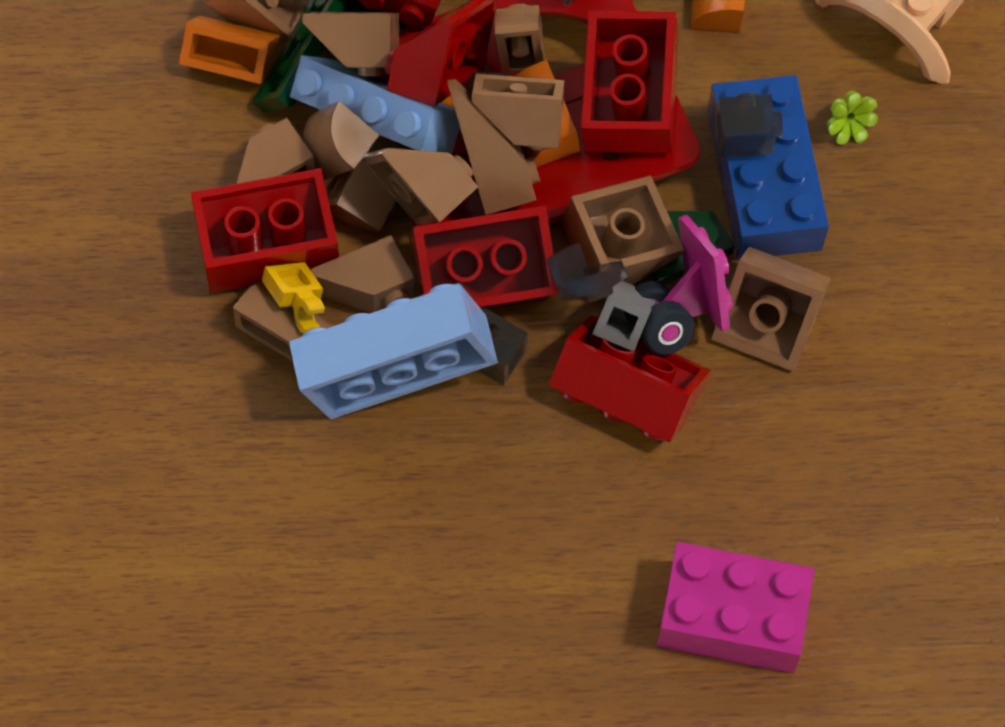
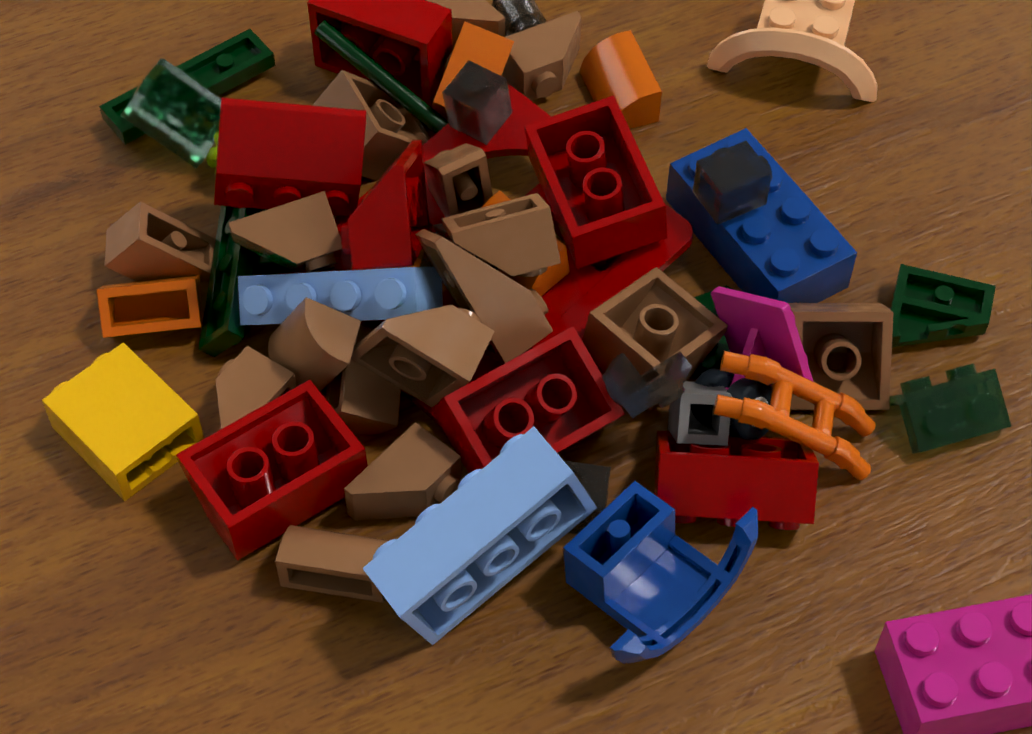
camera: 20 degrees left, 10 degrees down
(167, 142) = (123, 420): none -> yellow brick
(297, 288) = (337, 514): yellow plate -> none
(519, 430) = (650, 576): none -> blue piece
(678, 345) = (776, 415): none -> orange piece
(841, 390) = (952, 409): none -> clear green bracket
(851, 117) = (810, 154): lime plant -> none
(880, 299) = (938, 307): none -> dark green wing

